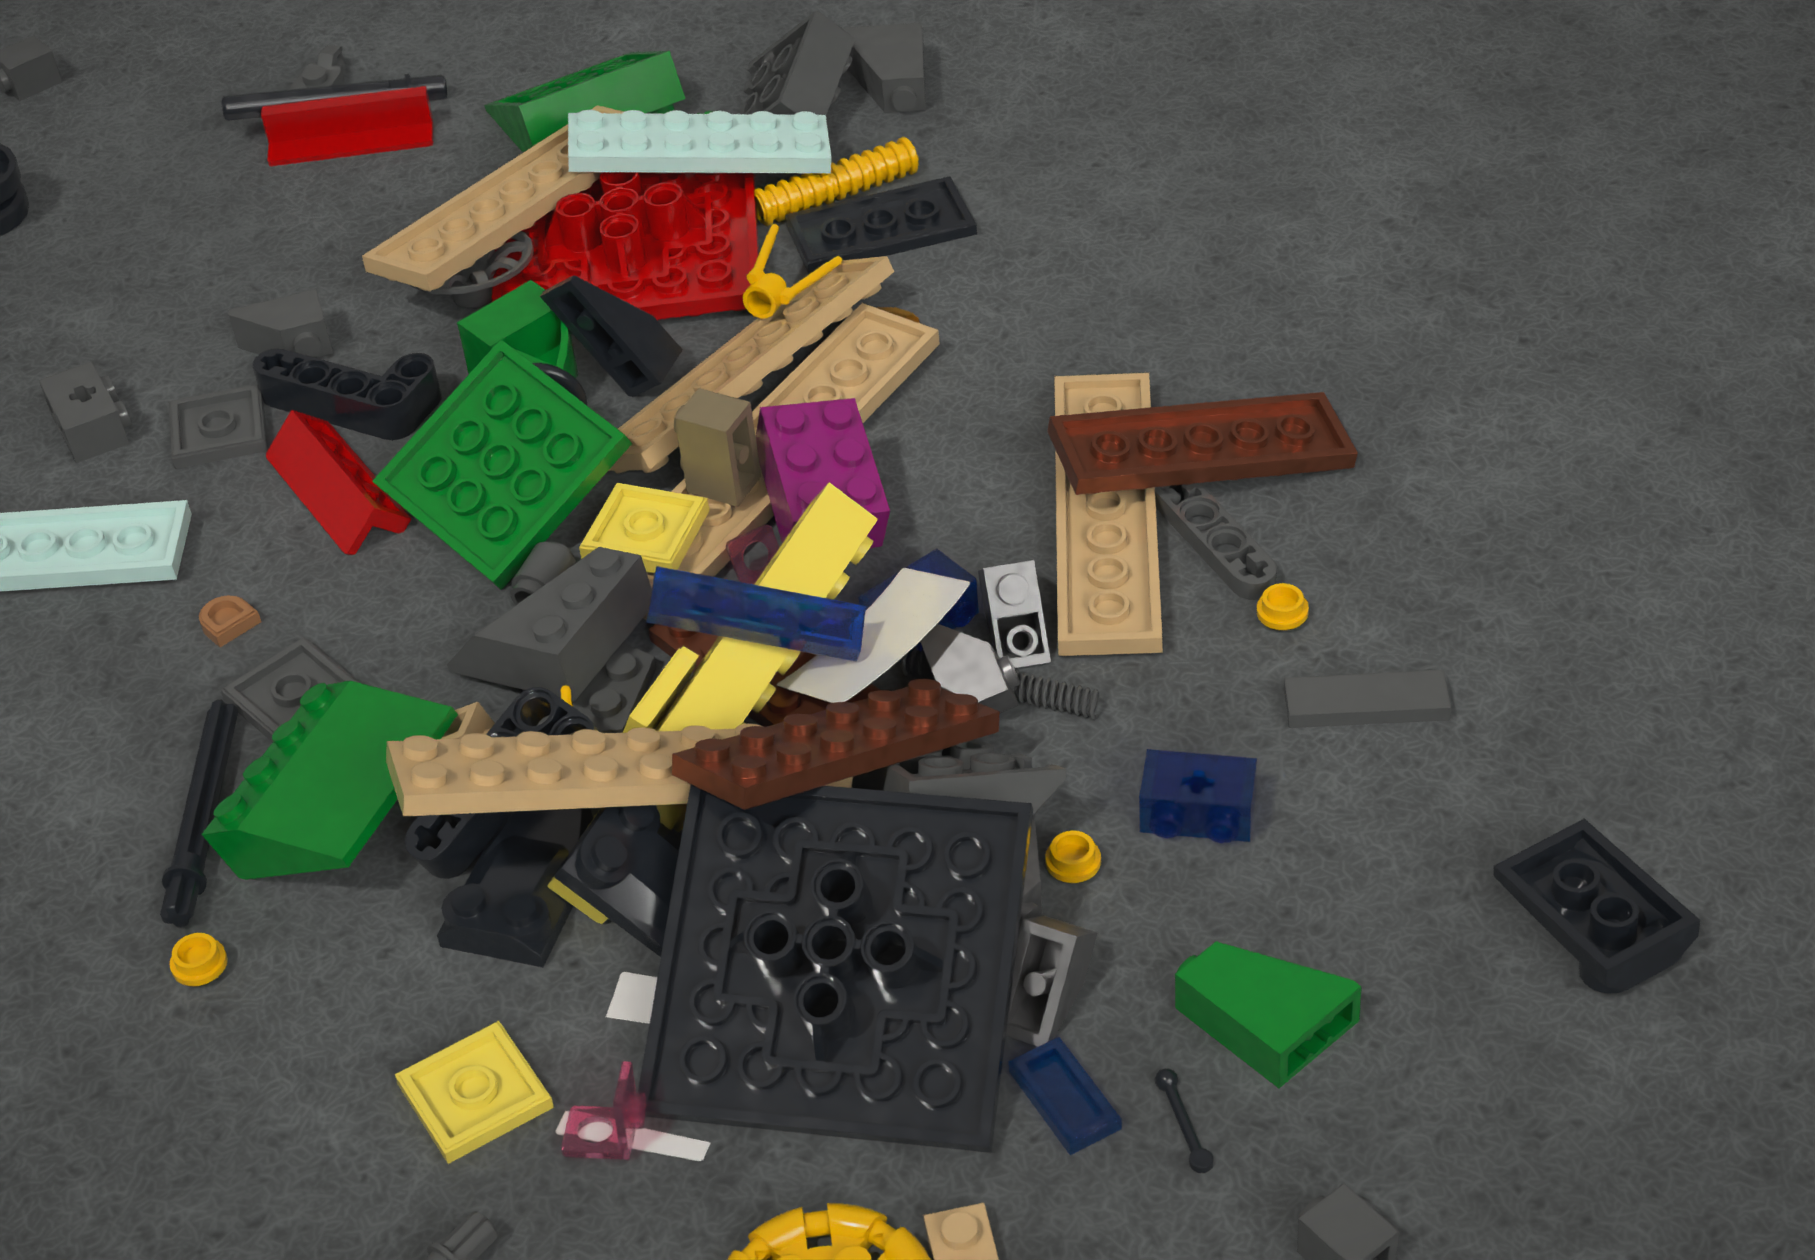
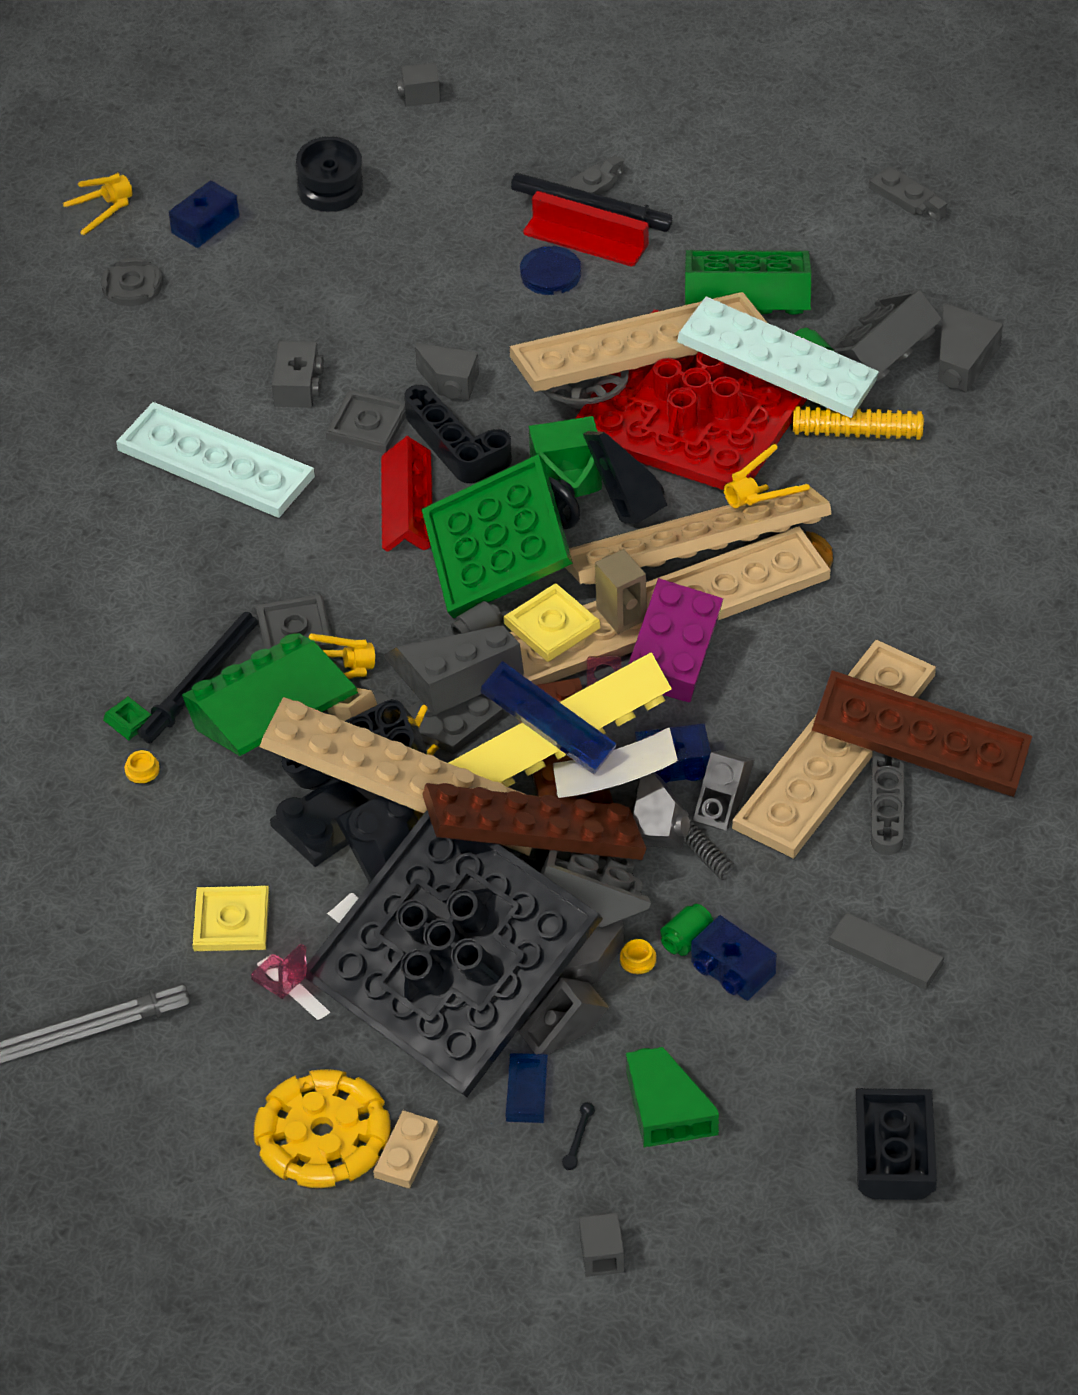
camera: 30 degrees right, 5 degrees up
(131, 907) = (126, 717): none -> green tile
(227, 619) = (289, 559): medium nougat tile -> none
(334, 184) = (550, 270): none -> clear blue tile
(409, 676) = (357, 655): none -> yellow plant
(663, 691) = (470, 739): light yellow tile -> none
(881, 223) = (865, 469): black tile -> none
(1110, 793) = (684, 928): none -> green brick
(1282, 607) = (885, 867): yellow plate -> none

